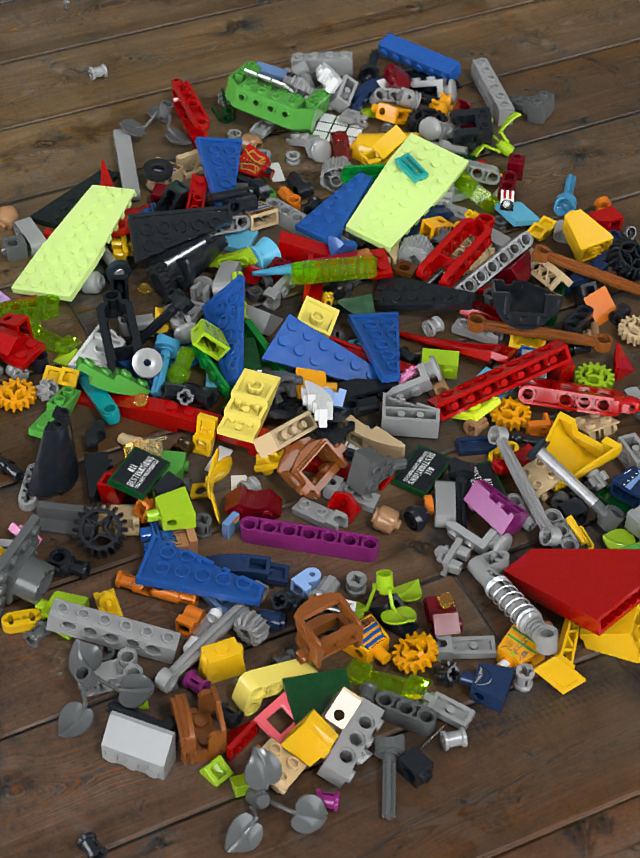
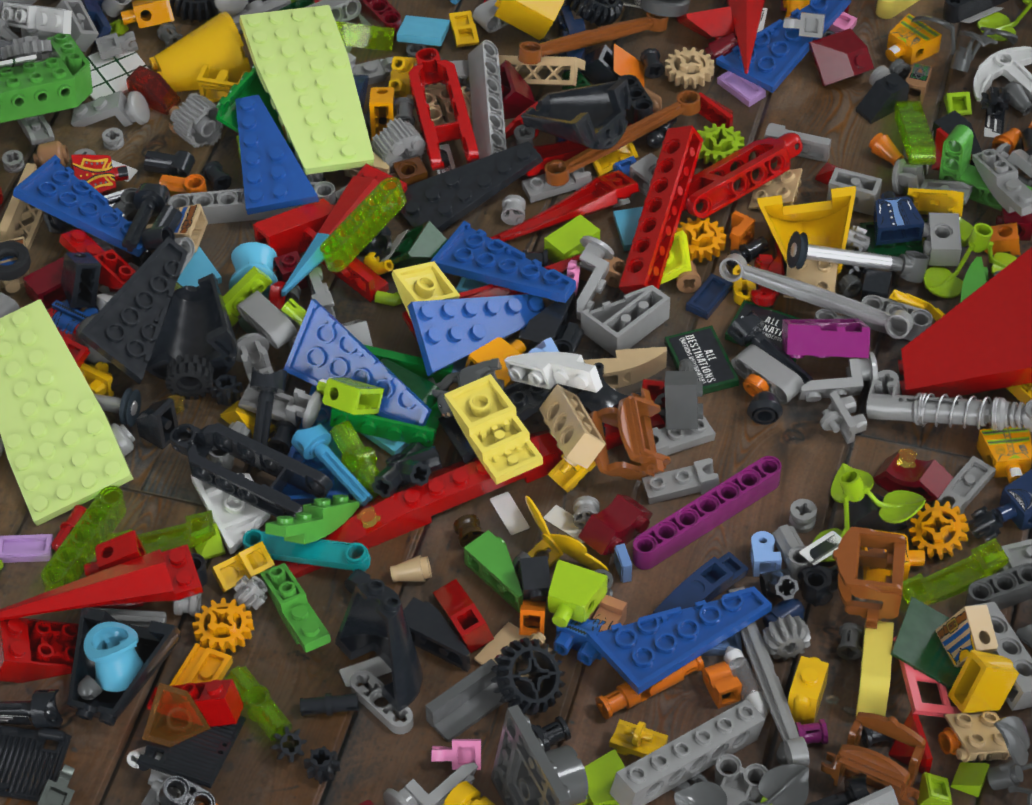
camera: 45 degrees left, 5 degrees up
(138, 473) = (489, 588): tile -> none
(143, 371) = (321, 480): light grey piece -> none
(151, 445) = (441, 561): clear yellow panel -> none
(205, 434) = (476, 495): yellow slope -> none
(338, 246) = (327, 195): blue tile -> none
(345, 503) = (692, 449): red bracket -> none
(368, 690) = (954, 601): dark grey bush -> none
(386, 519) = (743, 433): medium nougat head -> none
(389, 142) = (219, 43): yellow hinge -> none
(409, 169) = (289, 54): teal tile -> none
(507, 200) = (403, 22): sticker -> none

